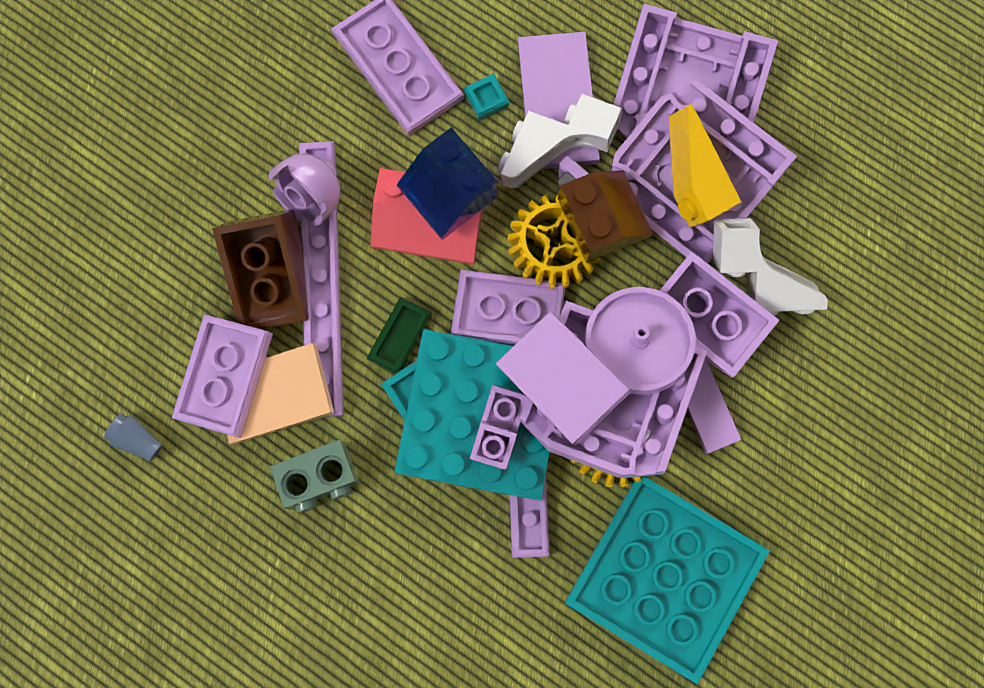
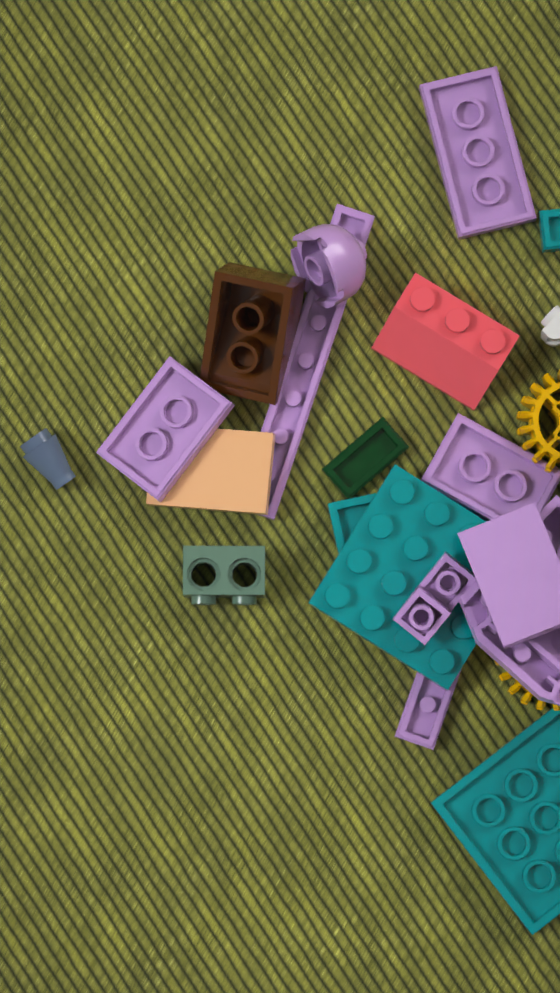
camera: 15 degrees right, 5 degrees up
(448, 184) = (480, 324): clear blue slope -> none

